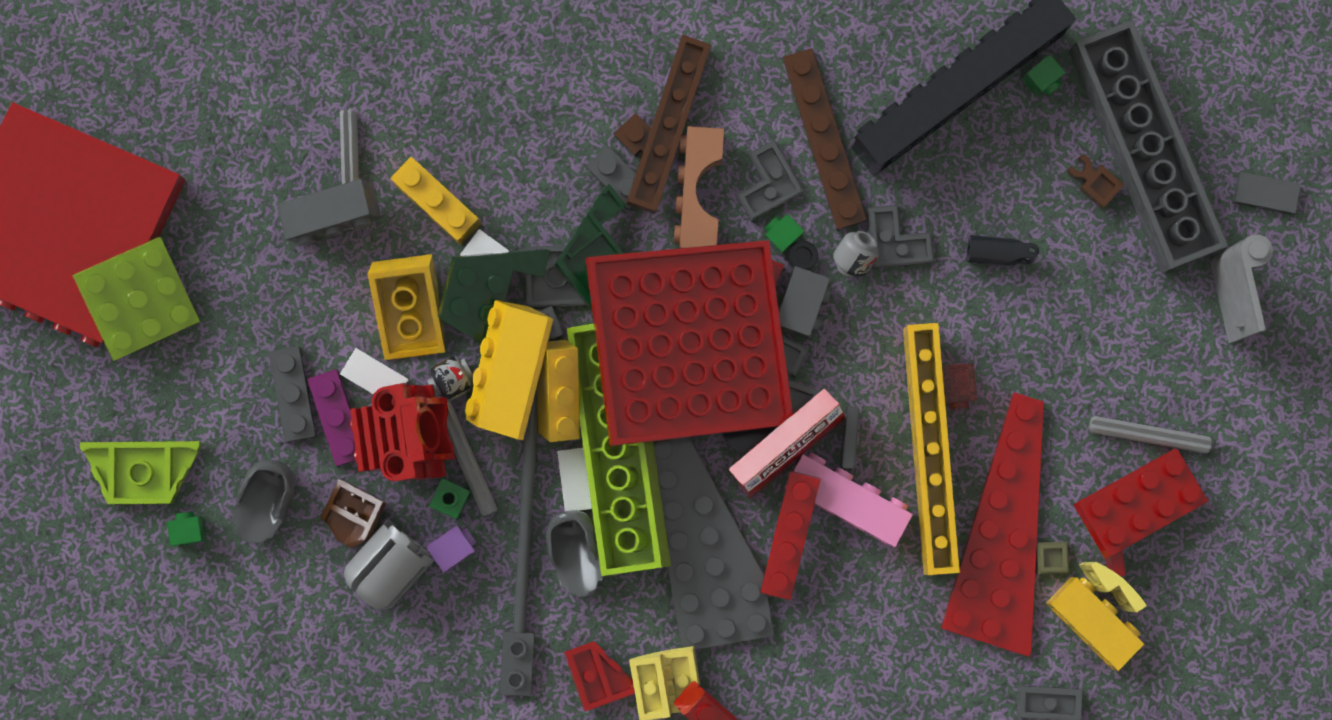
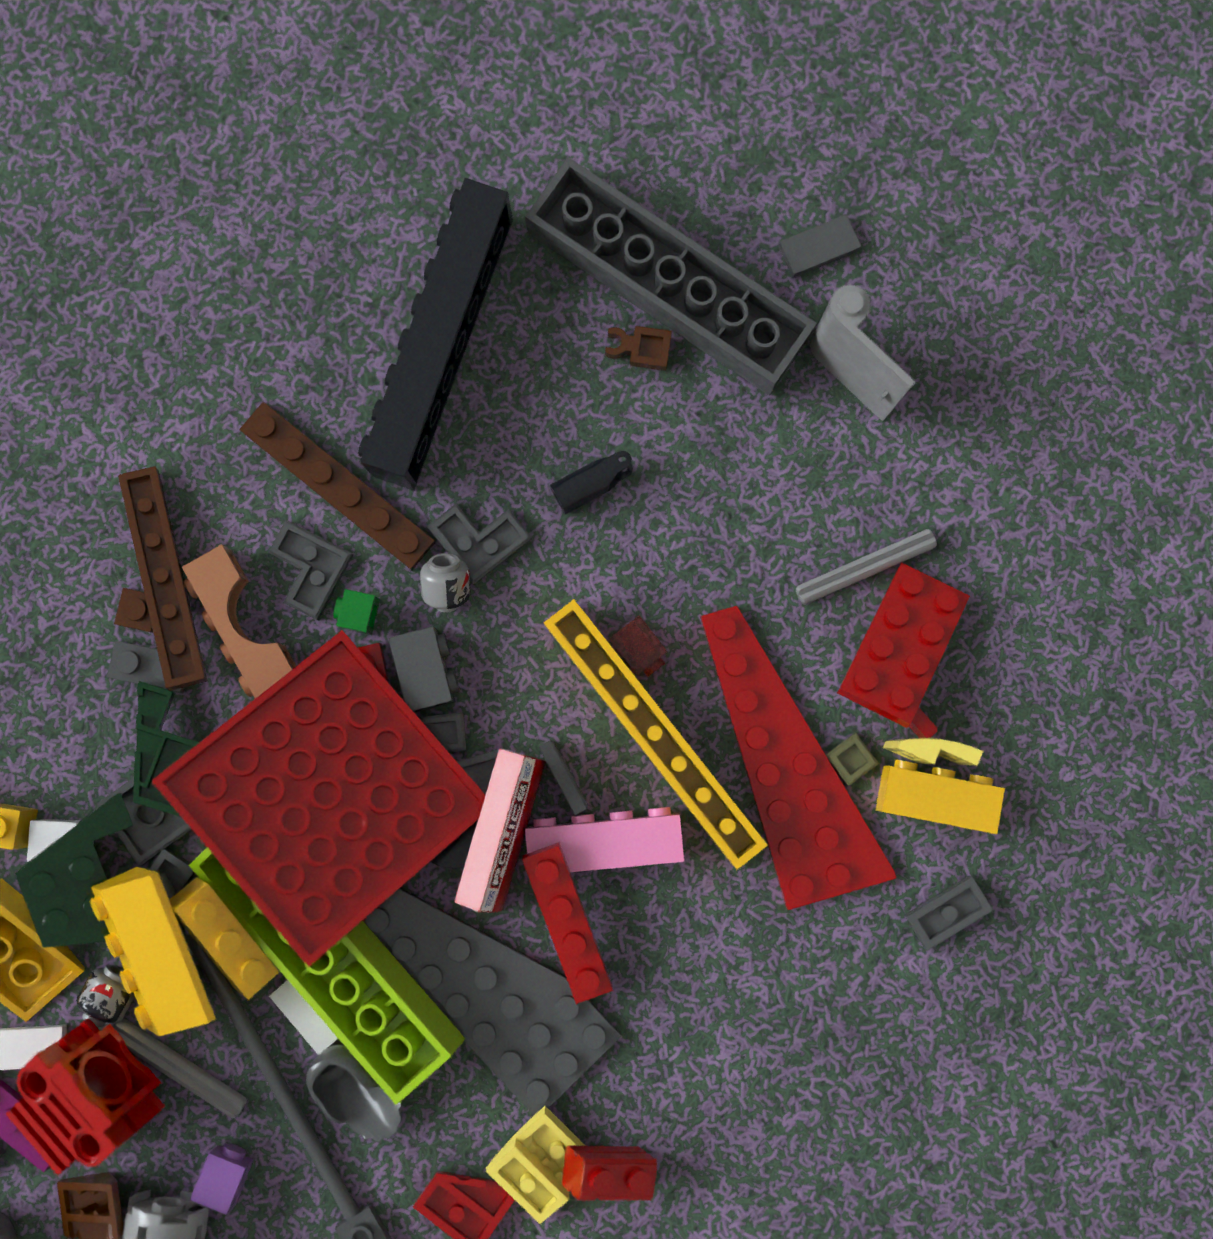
camera: 30 degrees left, 0 degrees up
(461, 498) = (196, 1116): green plate -> none
(803, 255) = (393, 619): black tile -> none
(1044, 77) = (519, 275): green plate -> none

